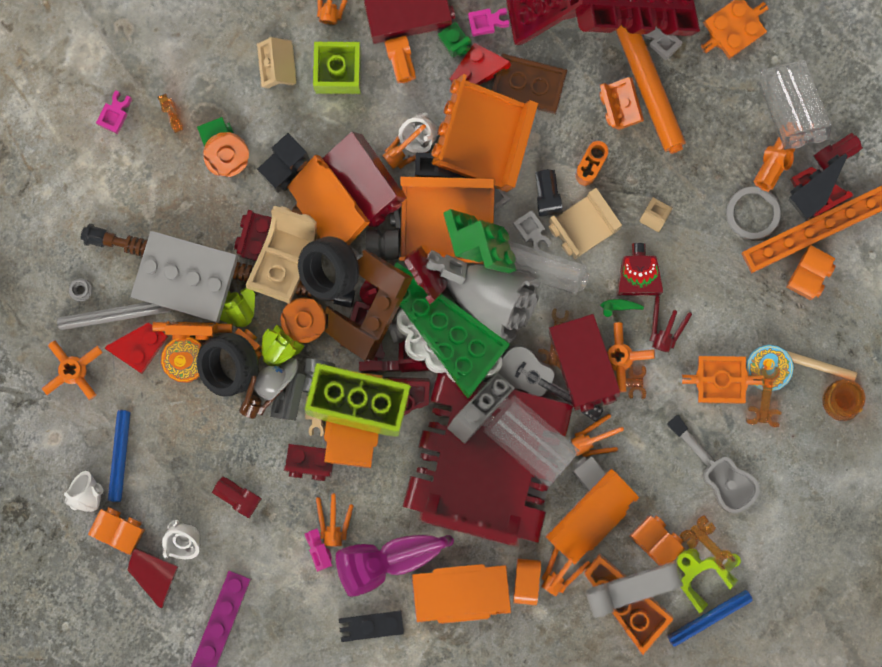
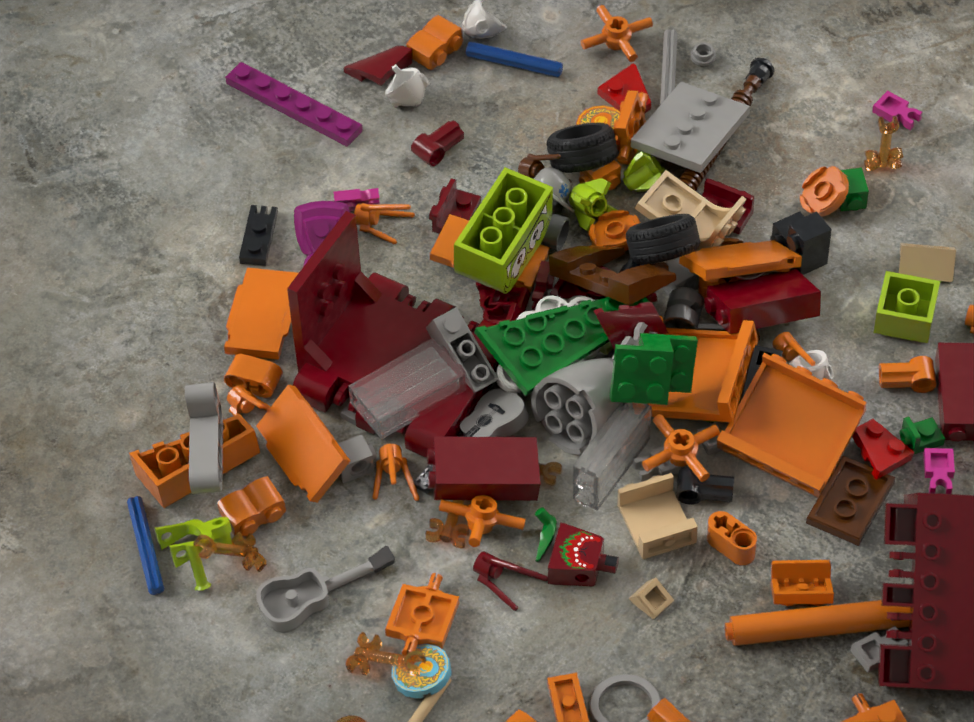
camera: 100 degrees right, 30 degrees down
(533, 207) = (681, 447): none -> orange bar

